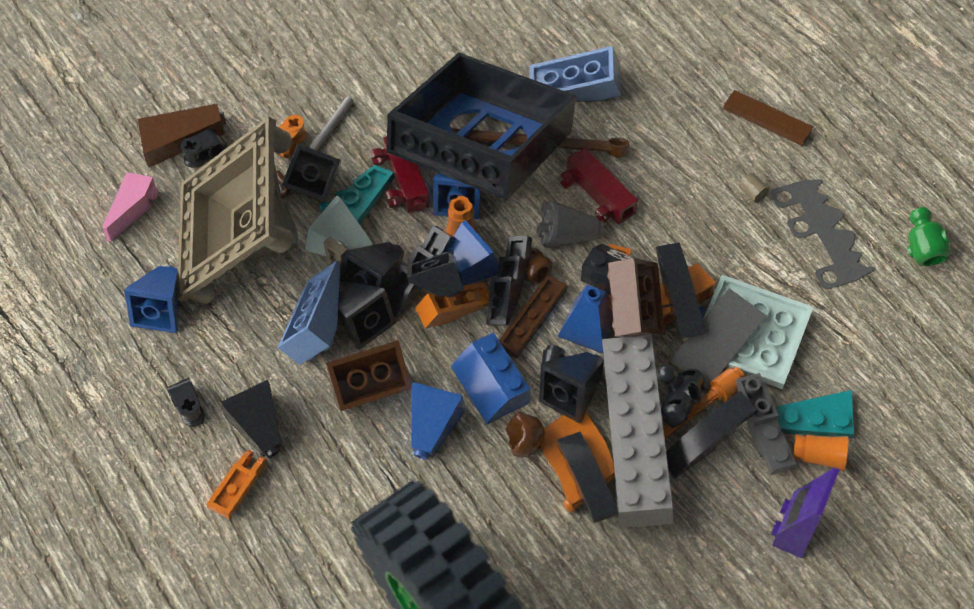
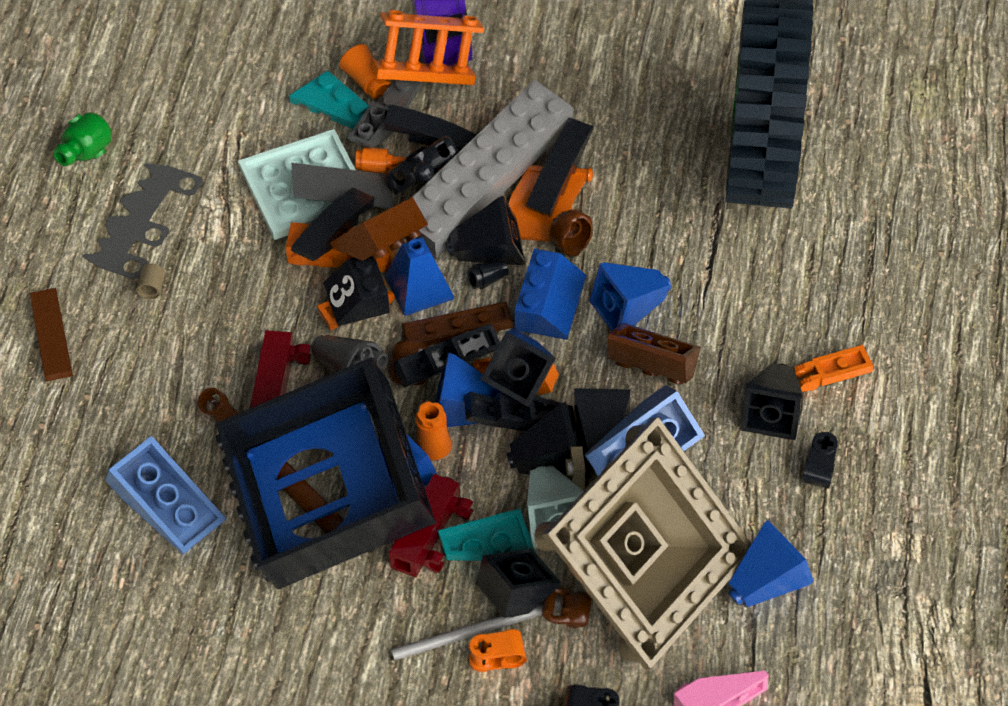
camera: 135 degrees left, 5 degrees down
(788, 479) = (435, 71): none -> orange fence

